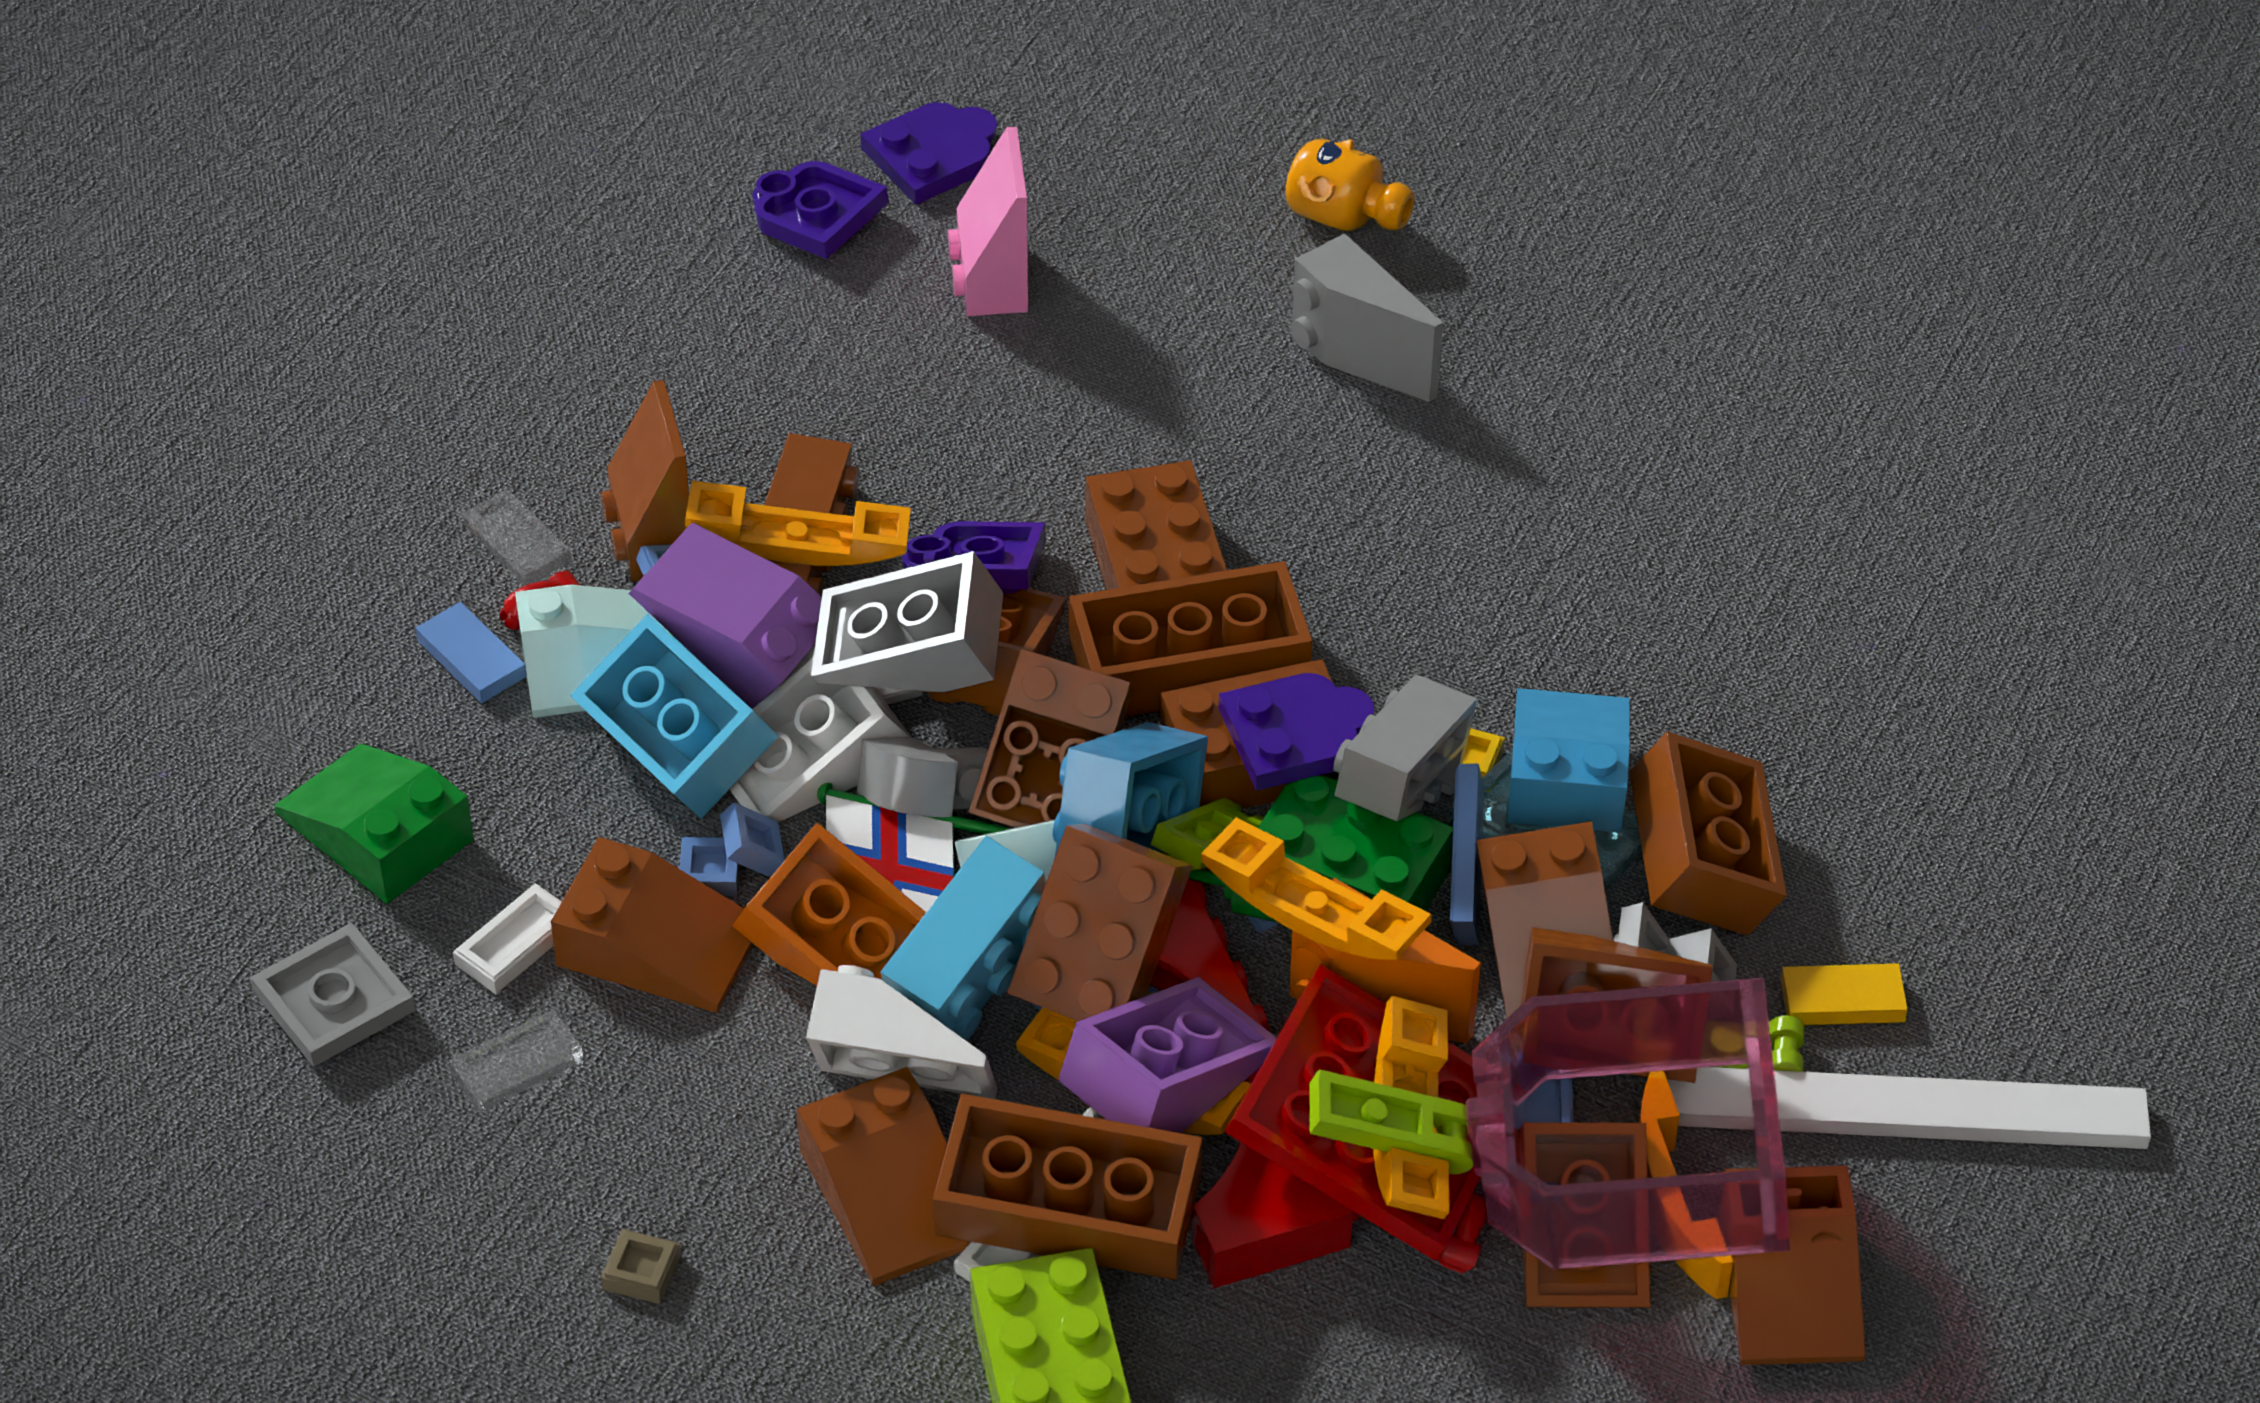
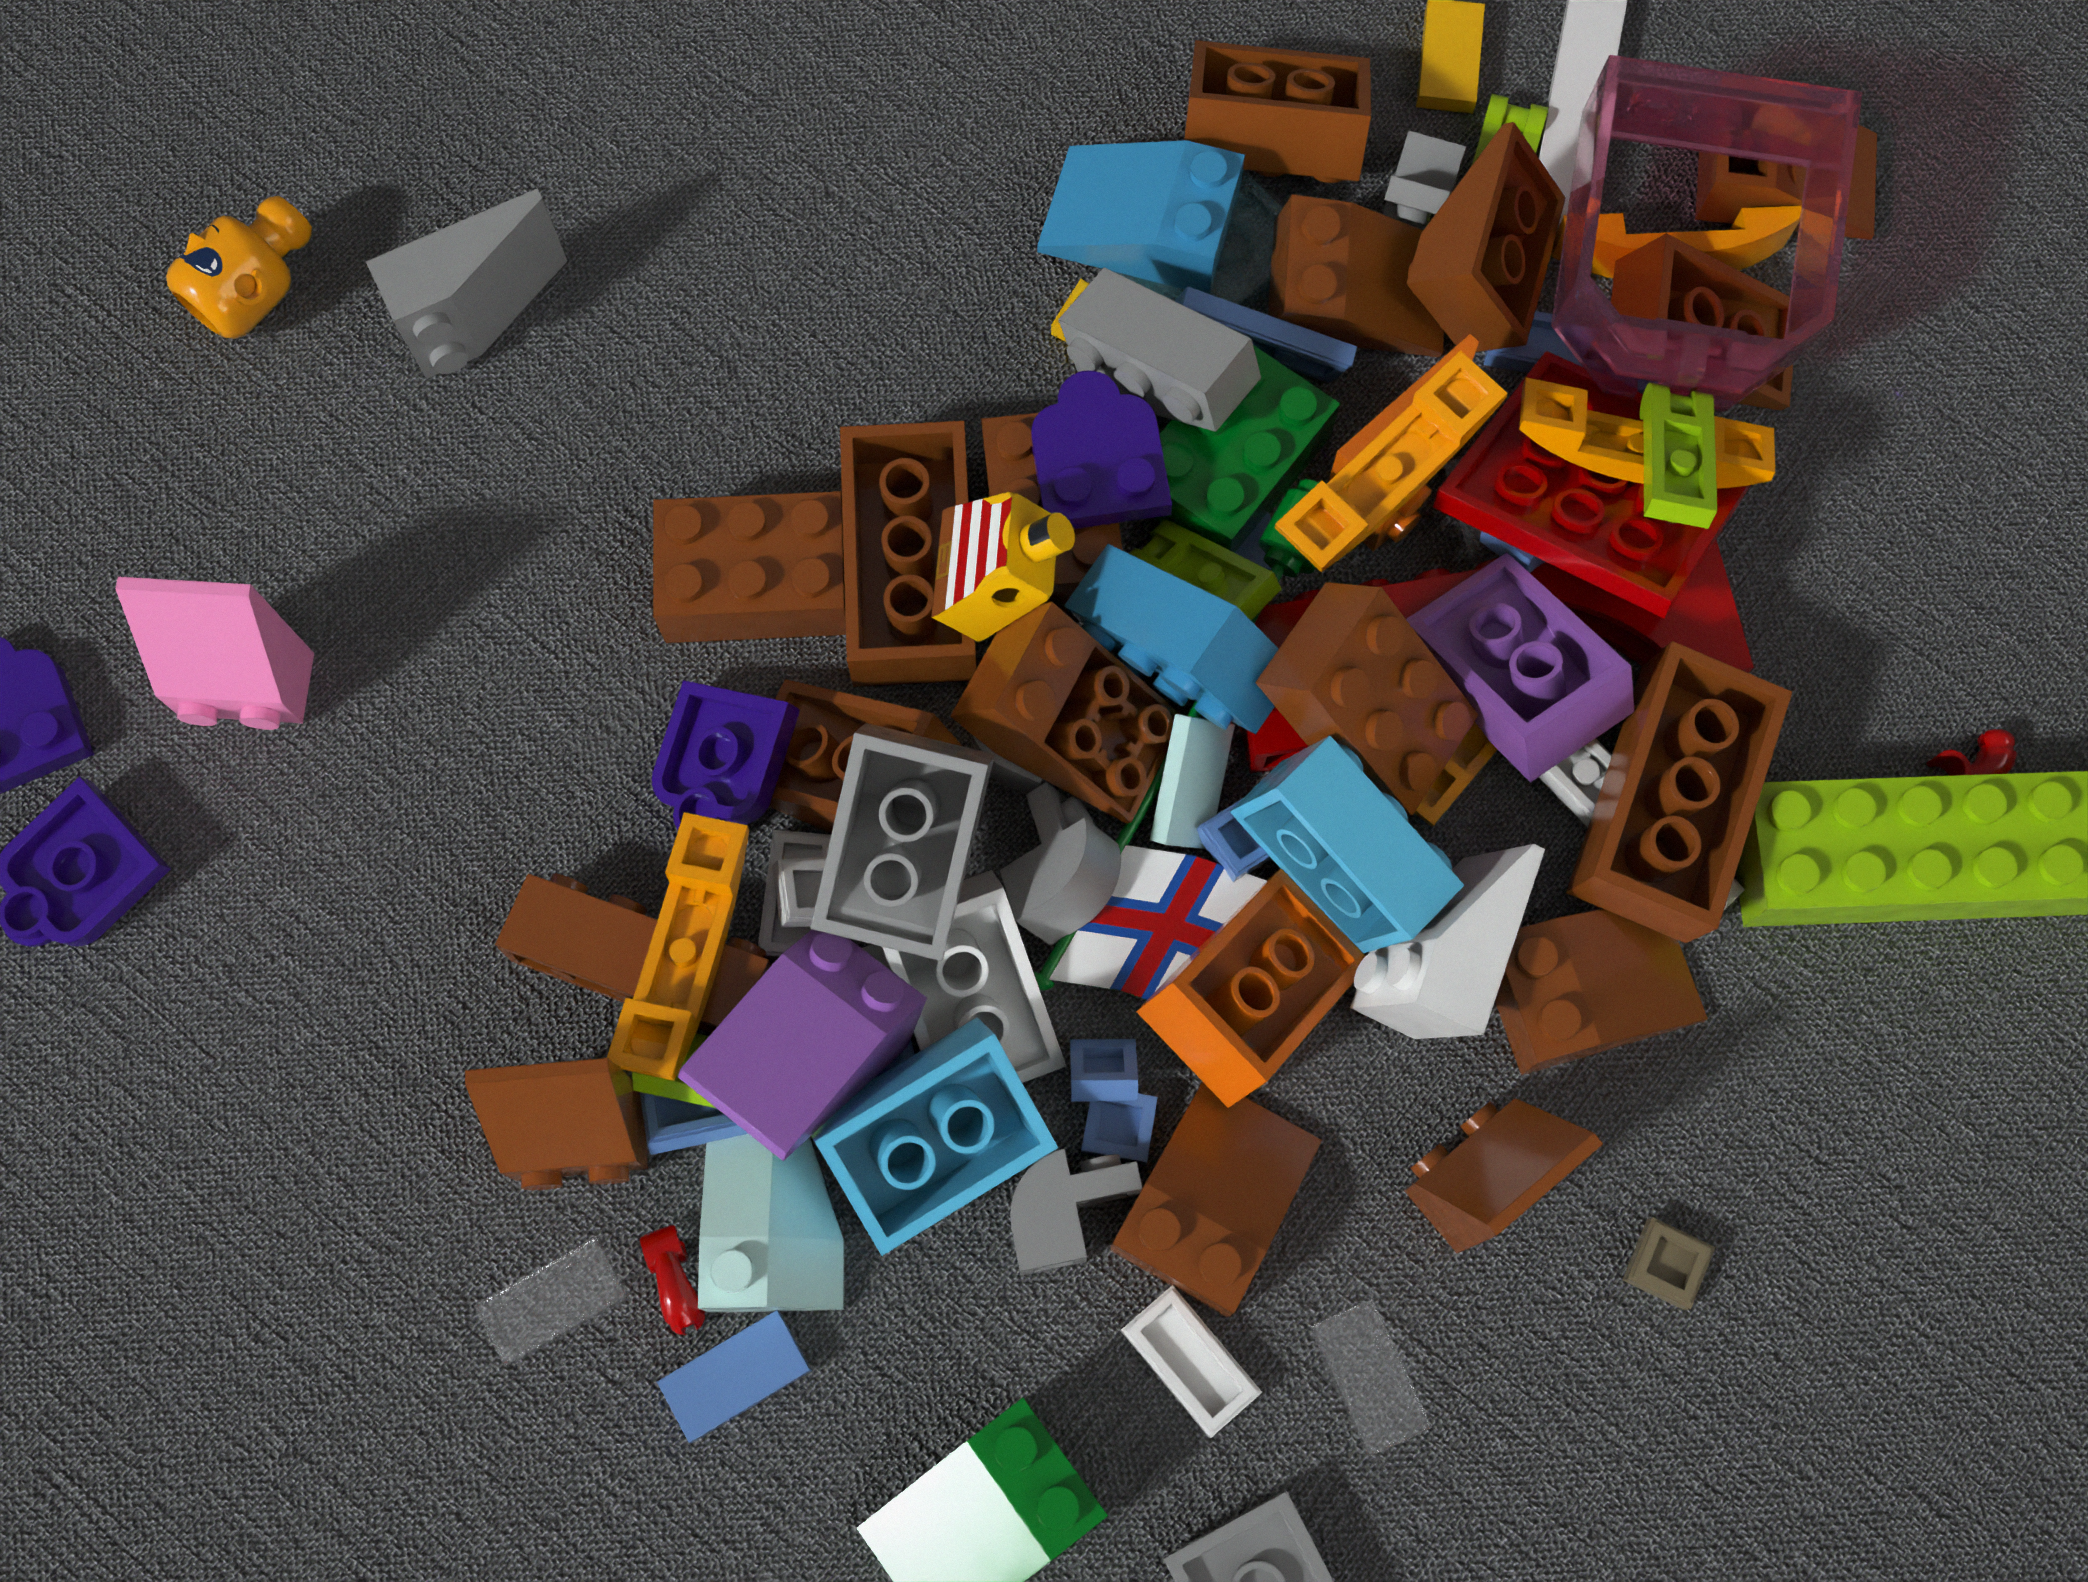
camera: 80 degrees left, 25 degrees up
(629, 813) = (1046, 1206): none -> light grey brick
(689, 1099) = (1496, 1170): none -> dark orange slope
(1162, 653) = (996, 562): none -> torso

